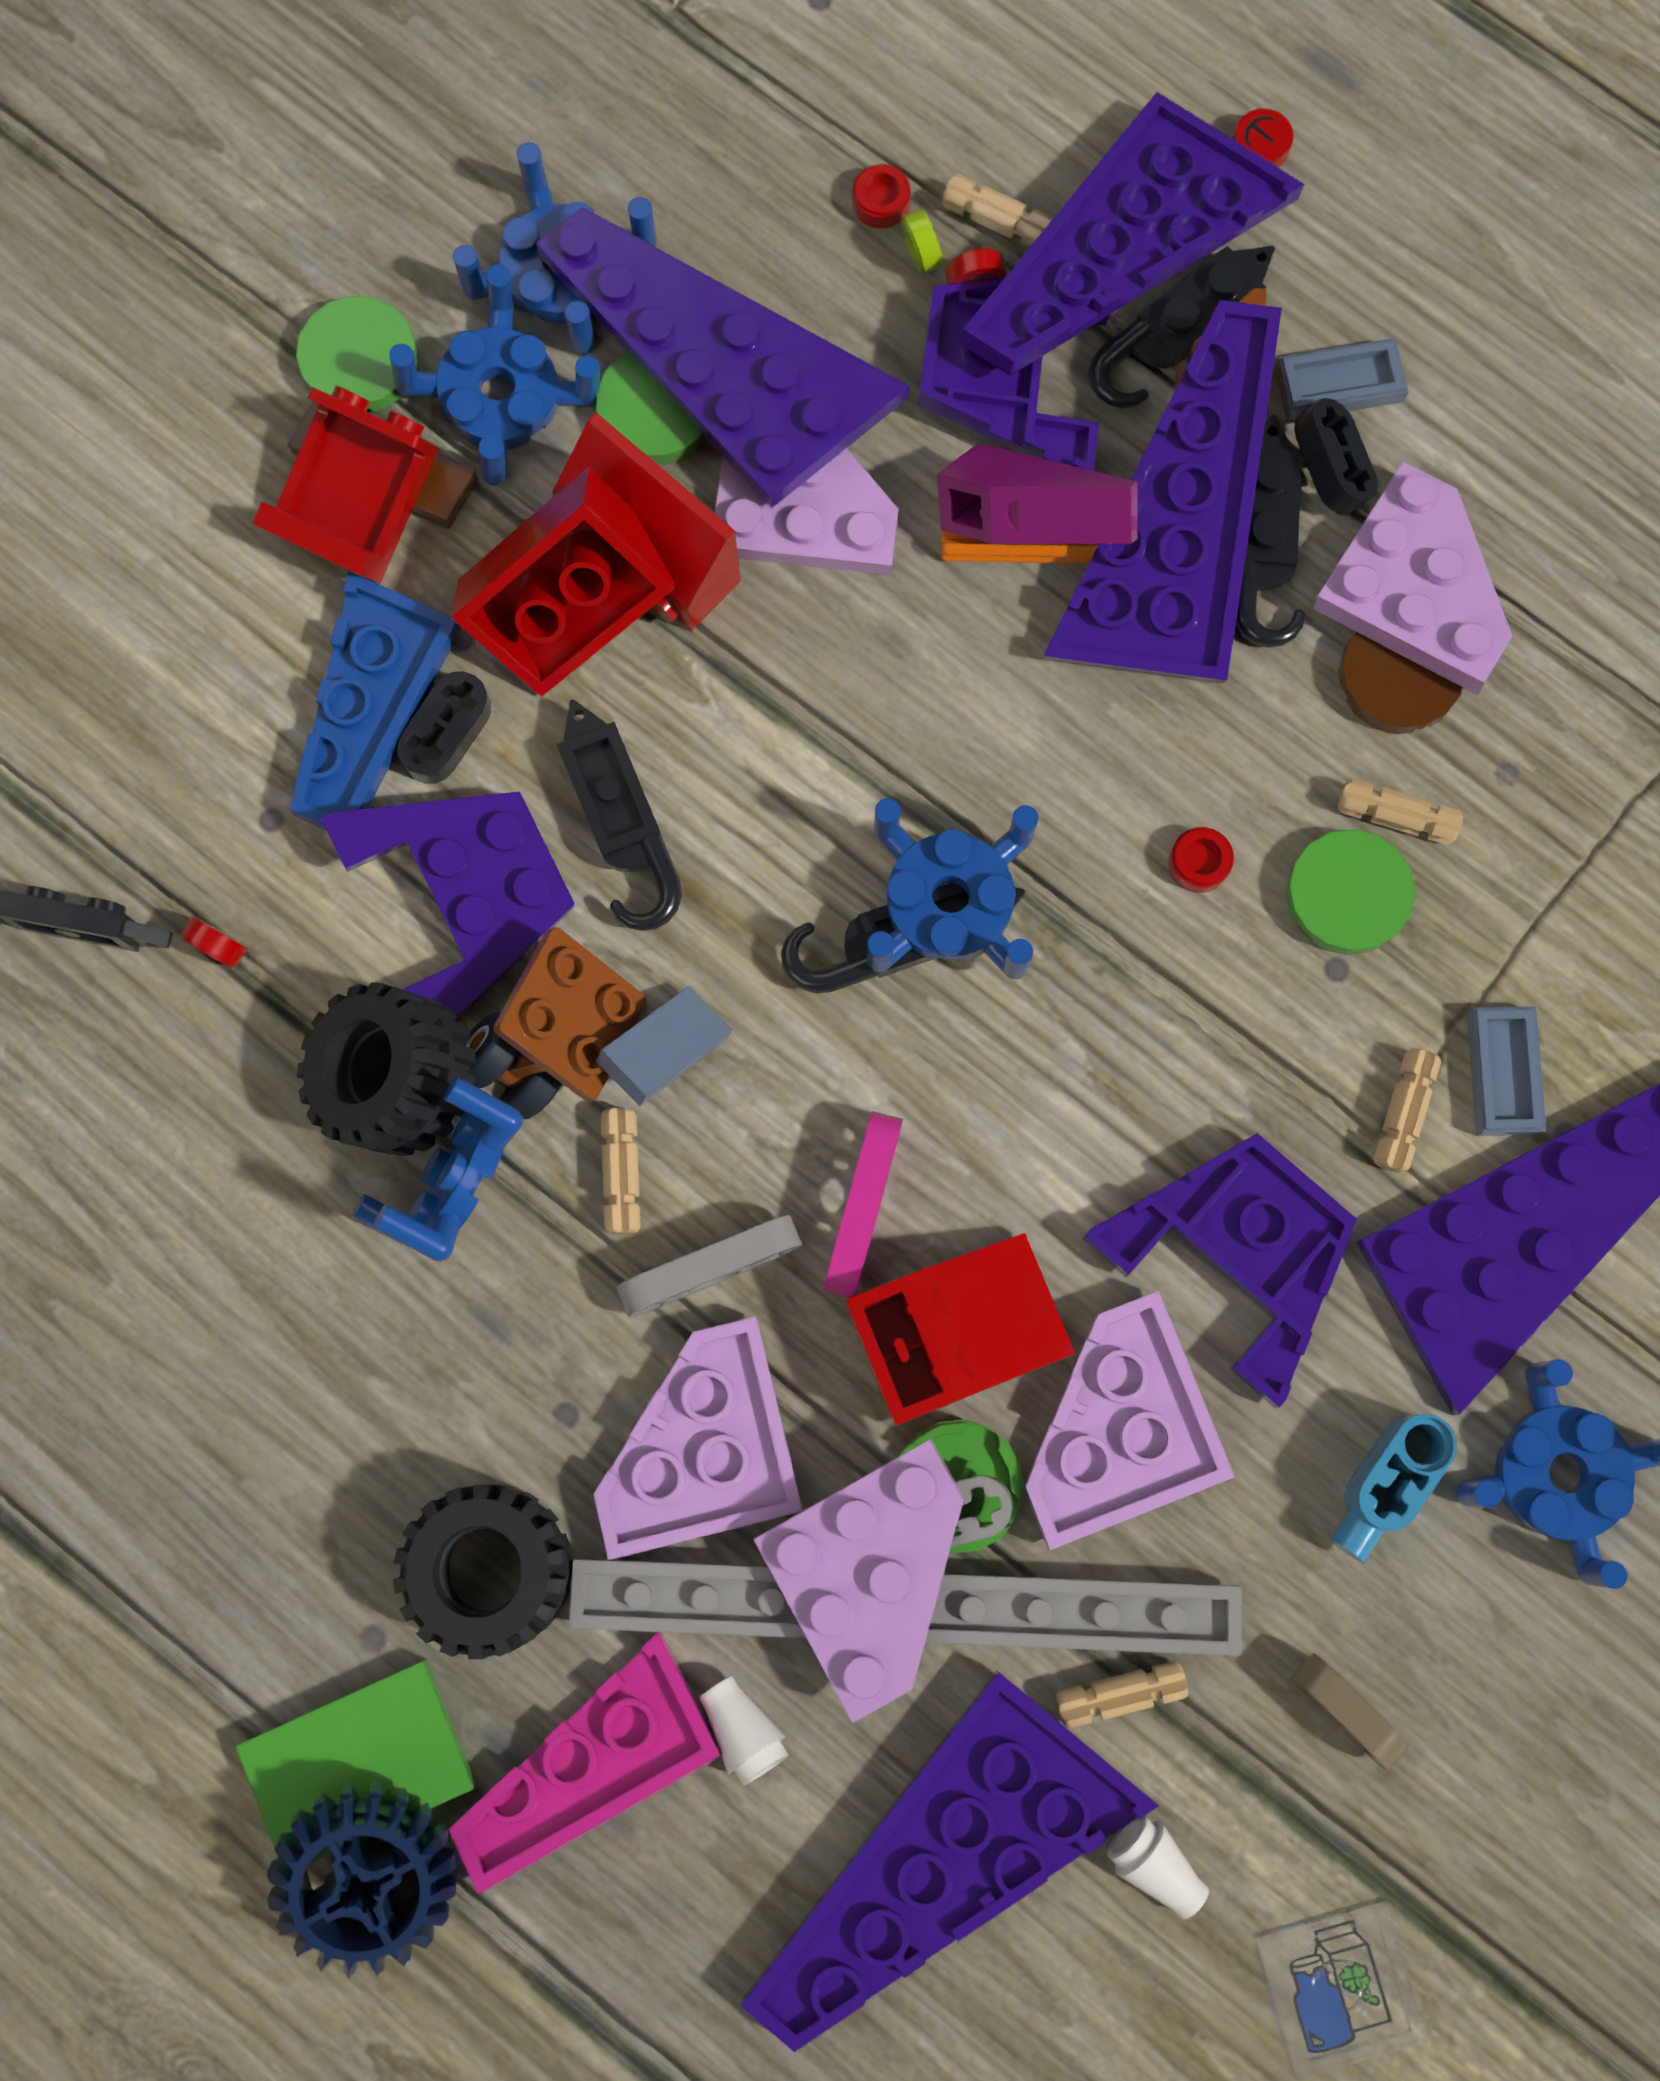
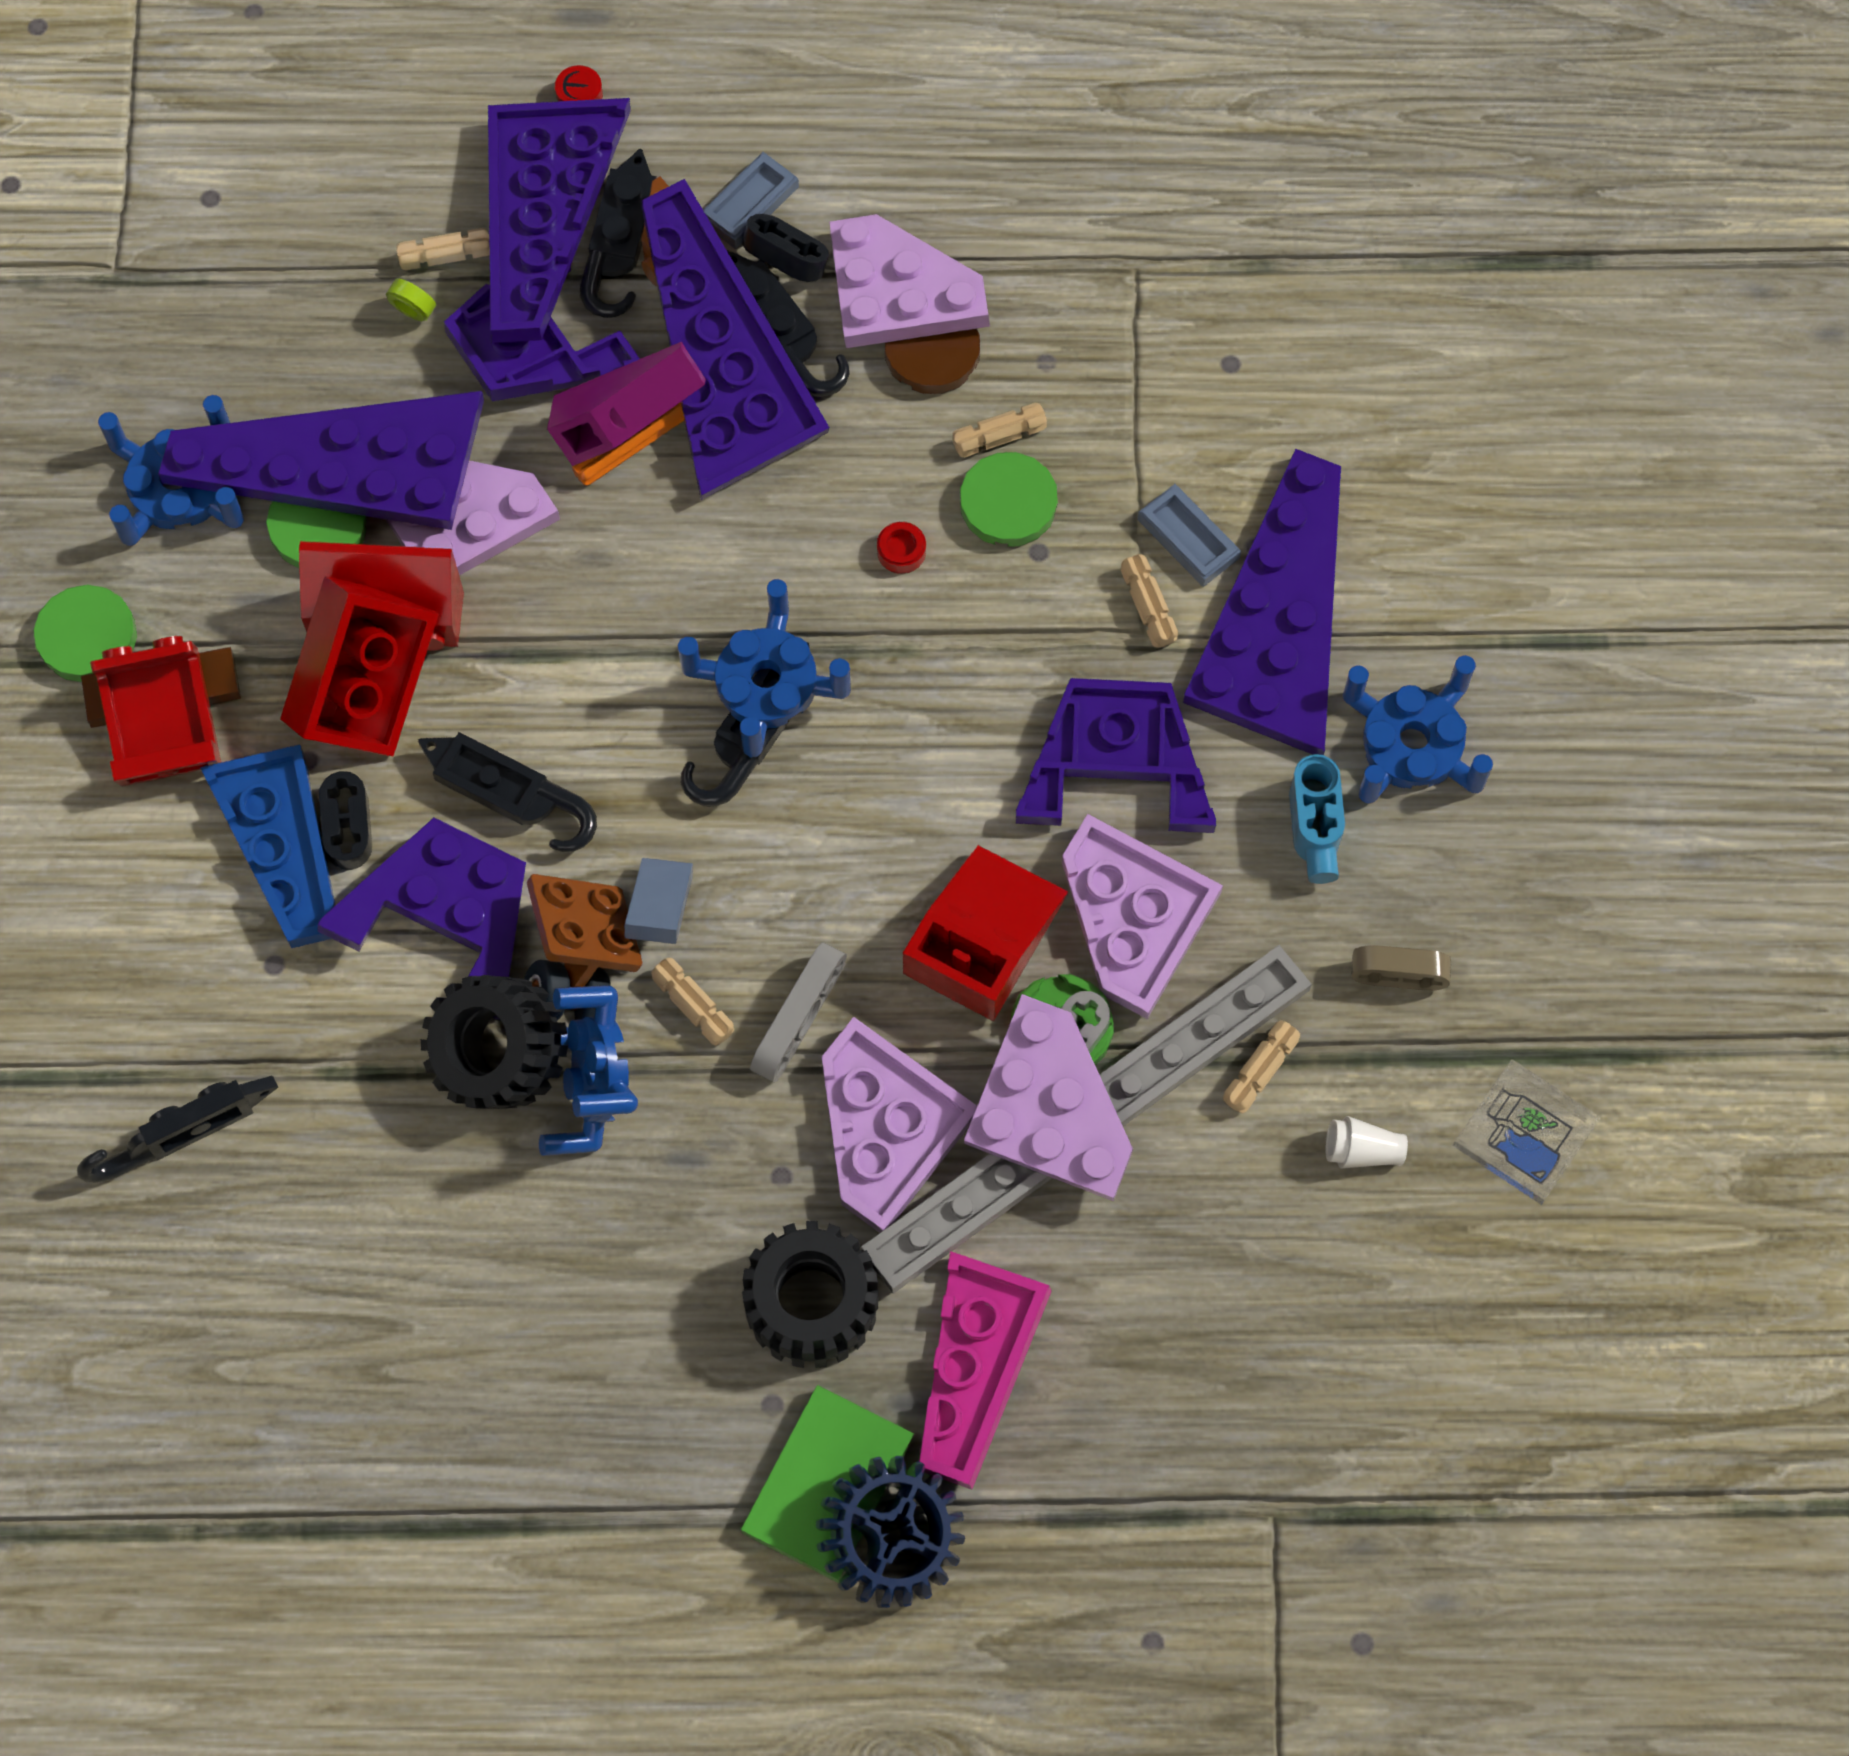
camera: 40 degrees left, 10 degrees down
(213, 942) = (305, 1060): red tile -> none
(493, 354) = (198, 559): blue plate -> none
(743, 1732) = (1056, 1265): white cone -> none
(863, 1205) = (864, 902): dark pink beam -> none
(881, 196) = (357, 292): red tile -> none
(964, 1841) = (1238, 1216): dark purple wing -> none
(976, 266) = (460, 290): red tile -> none

